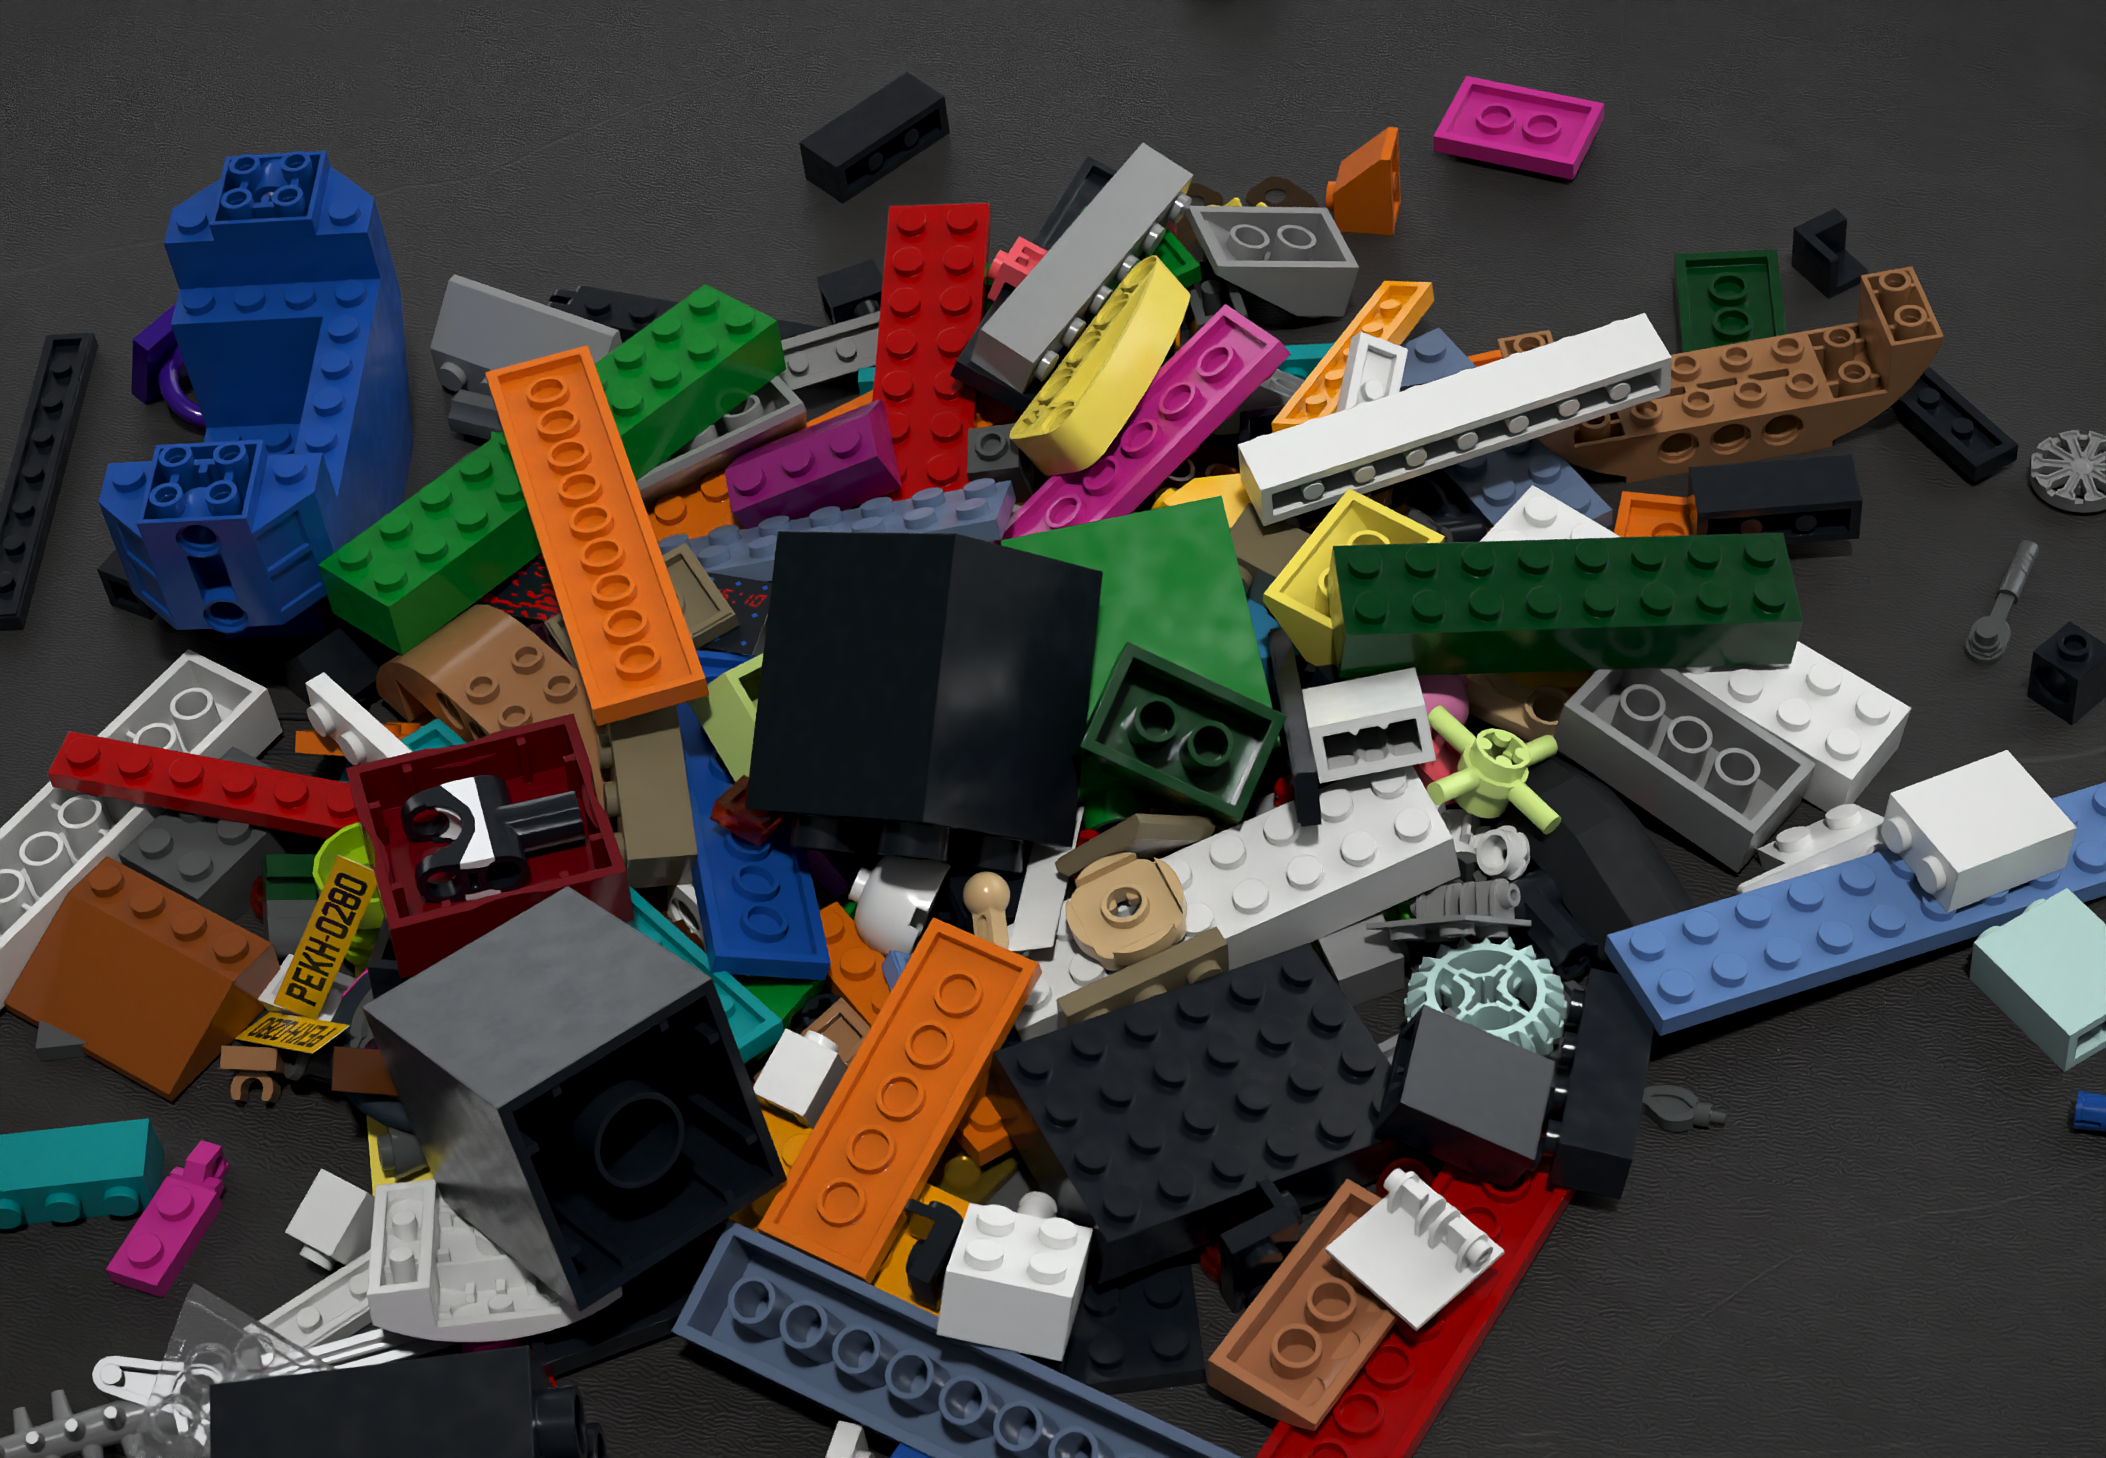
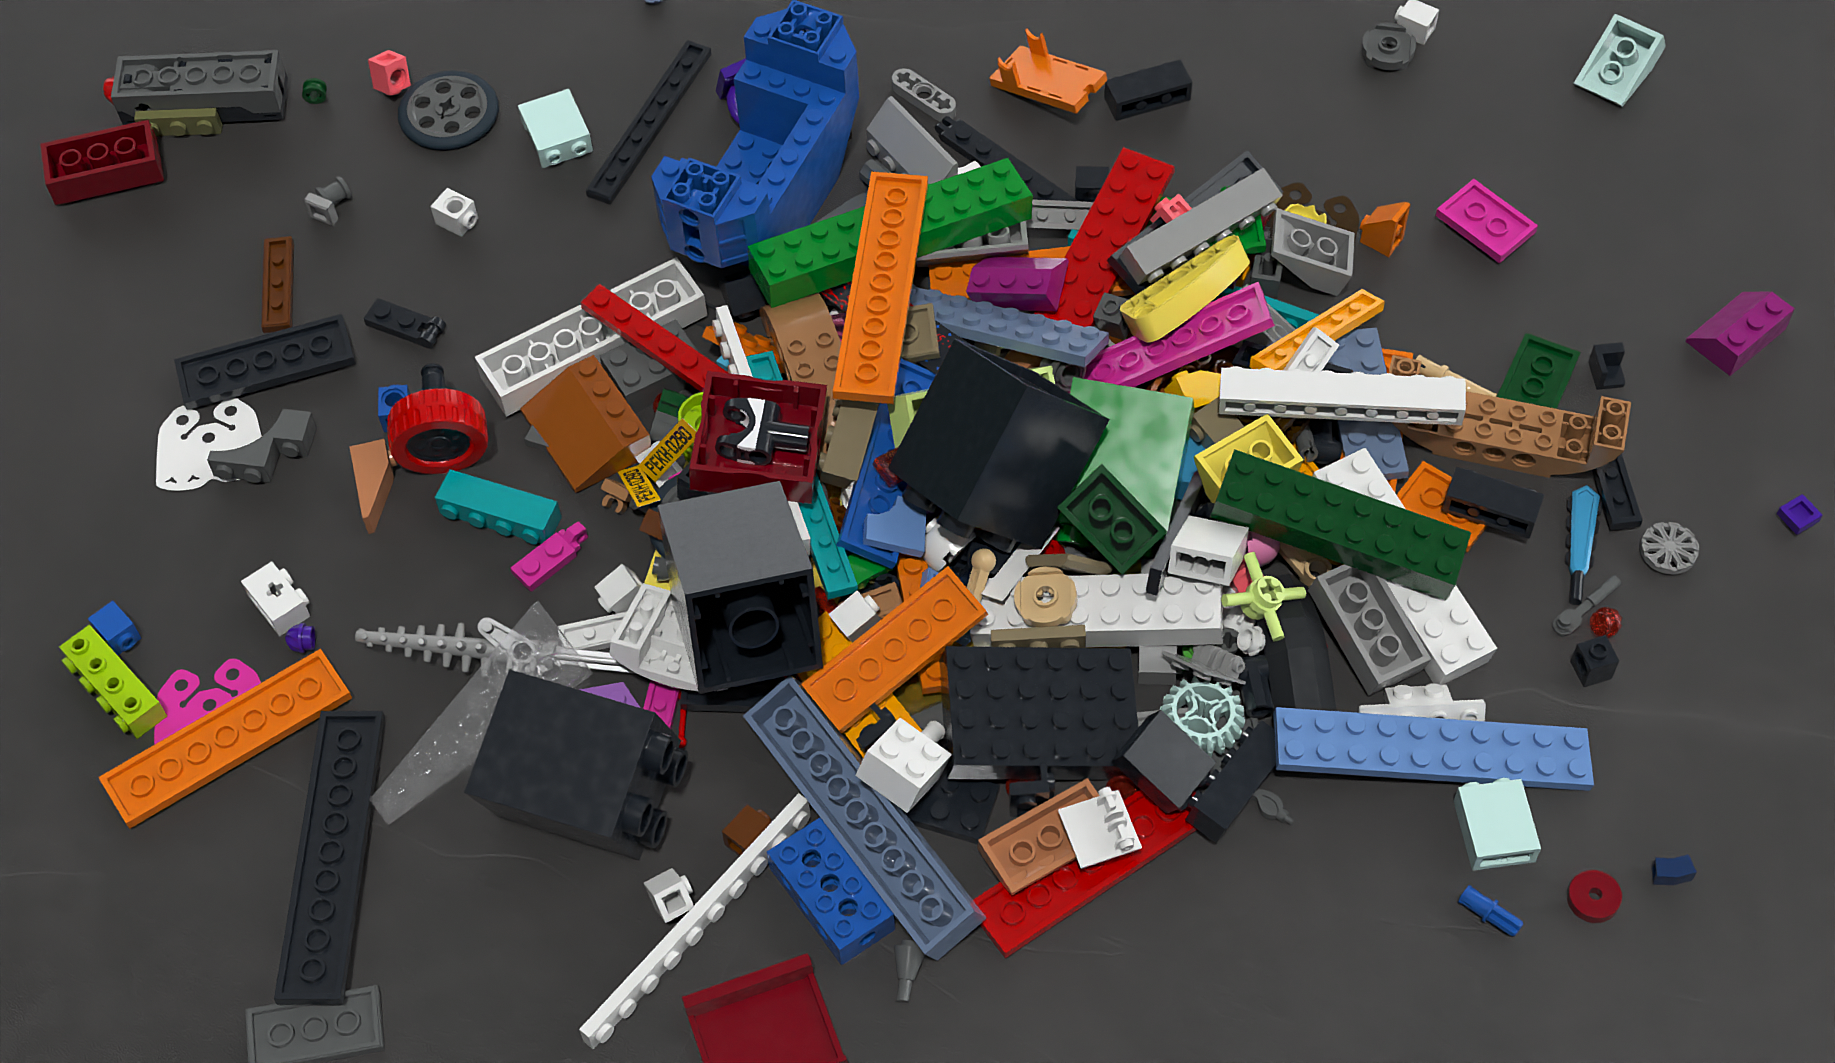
camera: 20 degrees right, 10 degrees up
(530, 277) = (919, 85): none -> light grey beam
(699, 174) = (1047, 78): none -> orange piece
(806, 905) = (897, 530): none -> medium blue tile
(1930, 494) = (1583, 525): none -> dark azure sword
(1977, 830) = (1489, 731): white brick -> none
(1999, 132) = (1741, 329): none -> magenta slope
(2050, 609) = (1606, 622): none -> clear red plate

